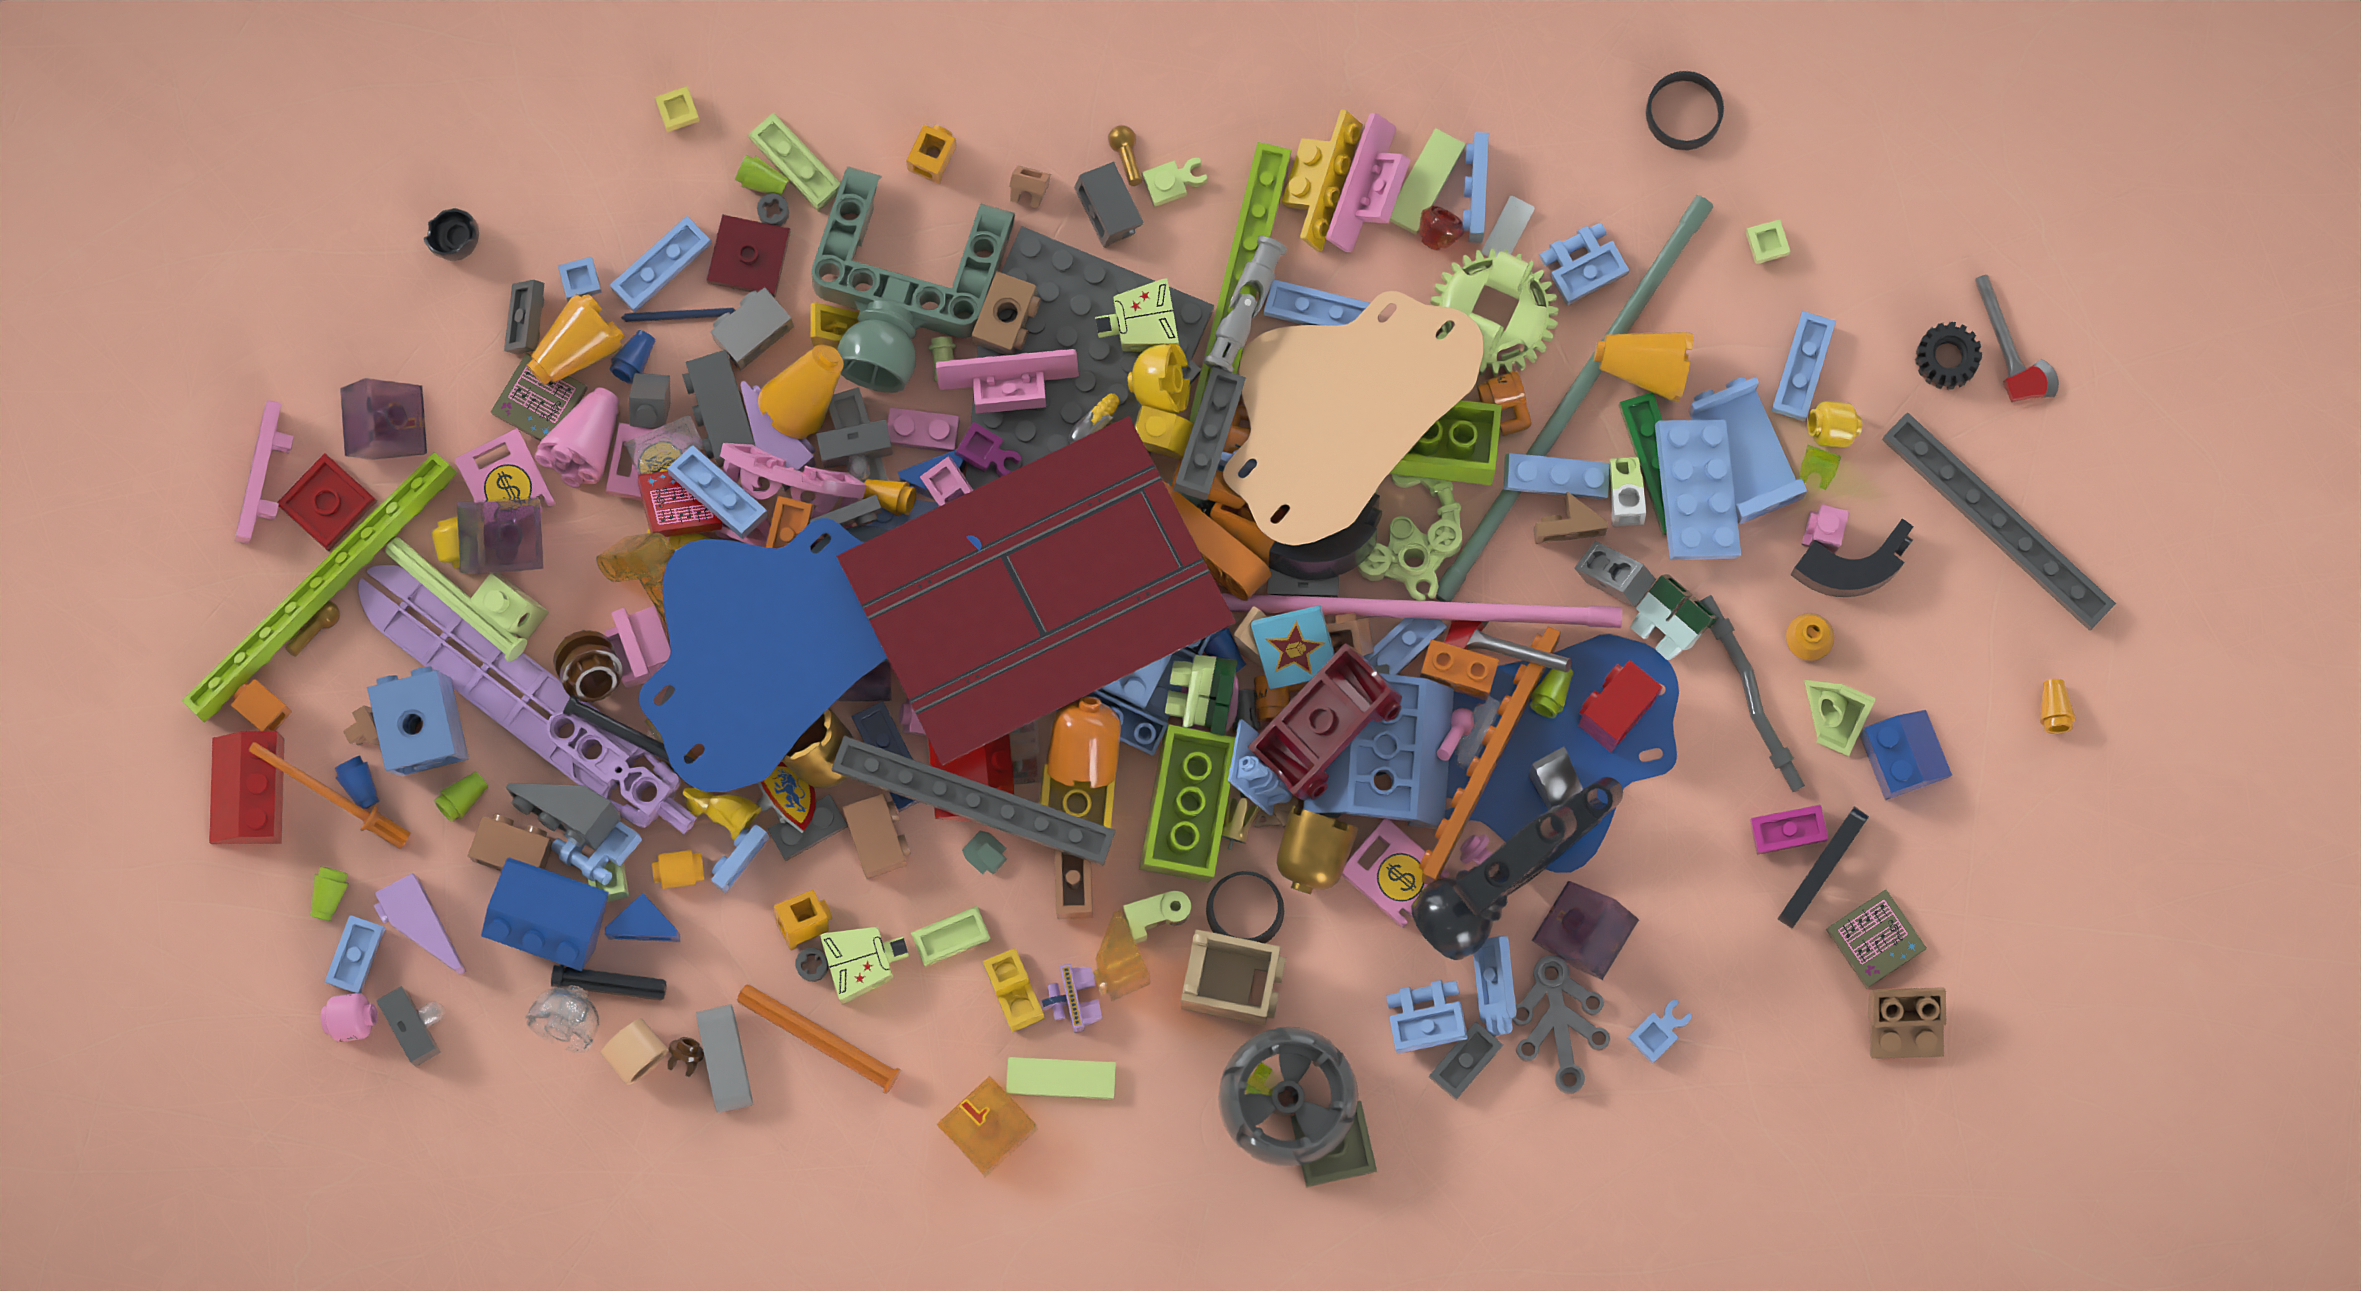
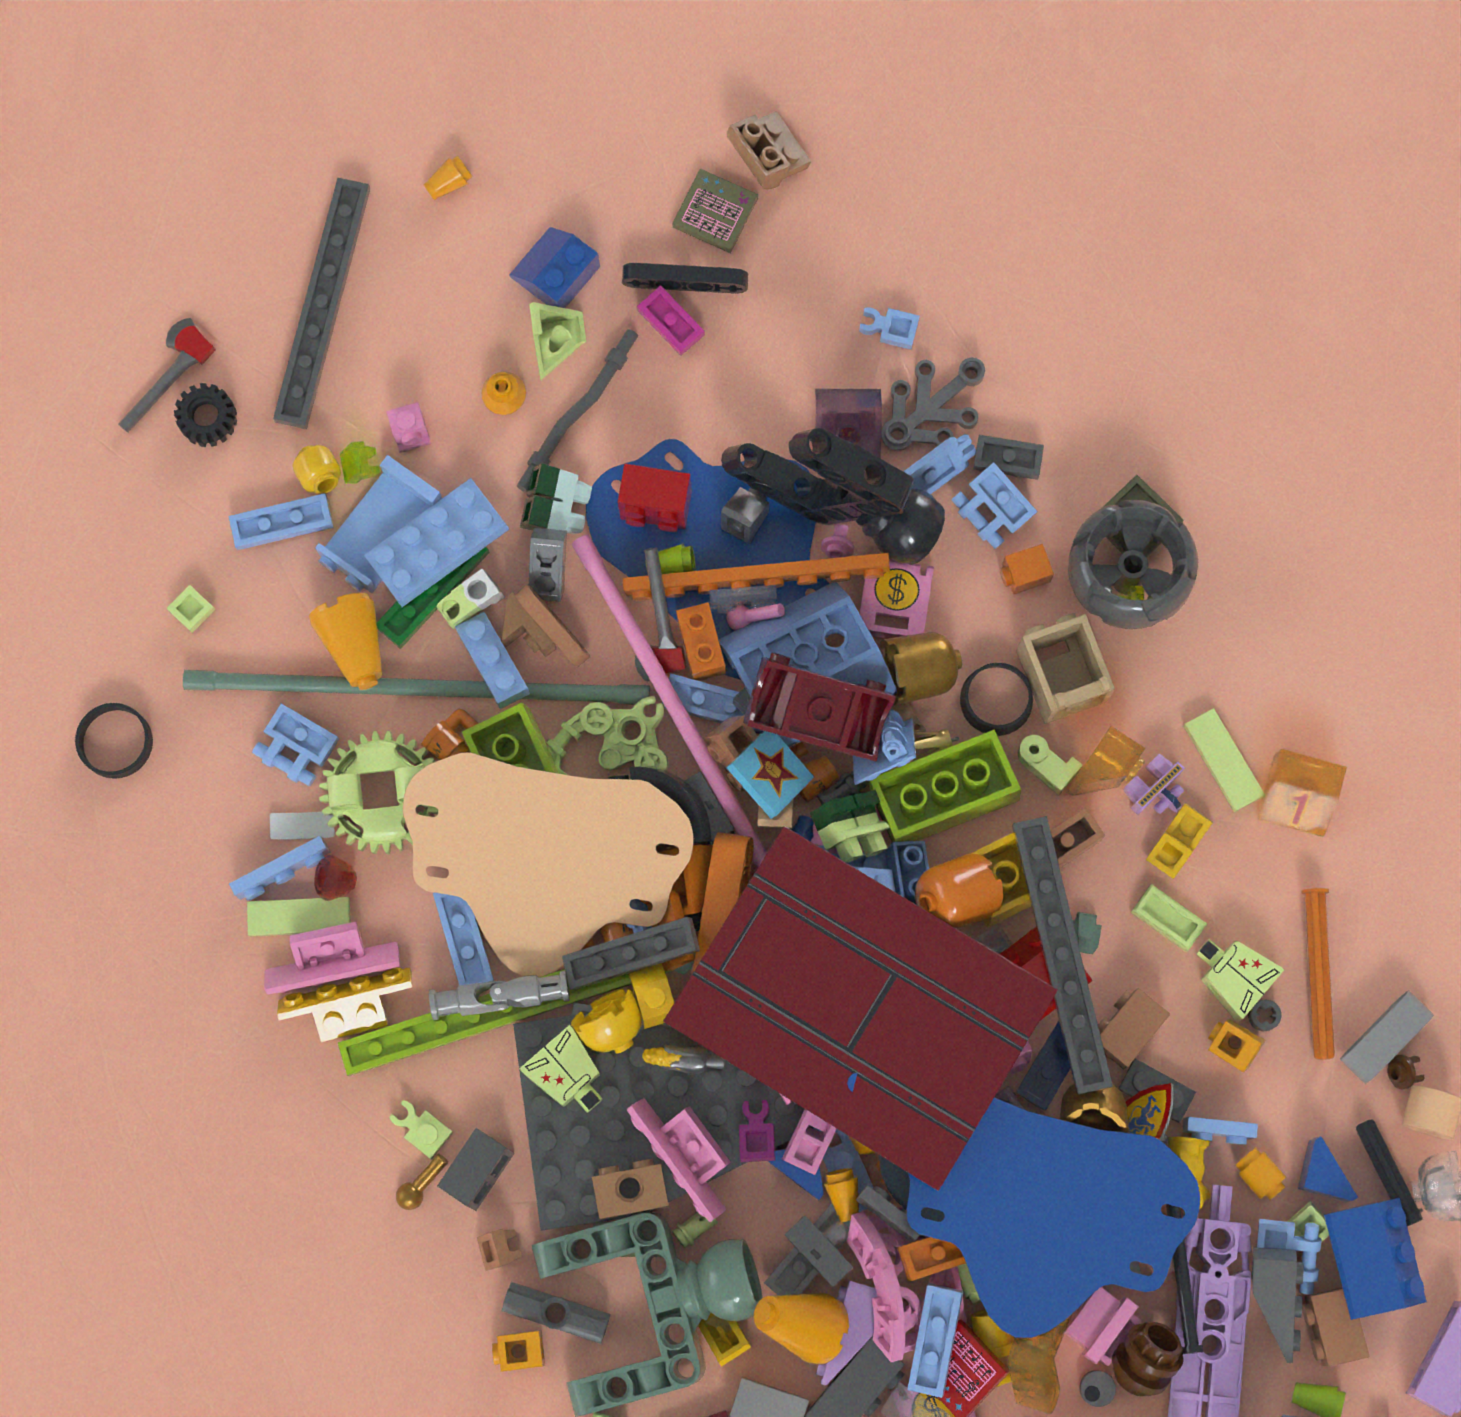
camera: 120 degrees left, 0 degrees up
(592, 615) = (1097, 1388): none -> flat silver tile
(923, 429) = (765, 1206): bright pink plate -> none
(961, 186) = (533, 1306): none -> dark grey piece
(1347, 1008) = (1026, 569): none -> orange brick
(1554, 546) = (552, 625): none -> nougat beam
(1844, 577) = (444, 406): black arch -> none

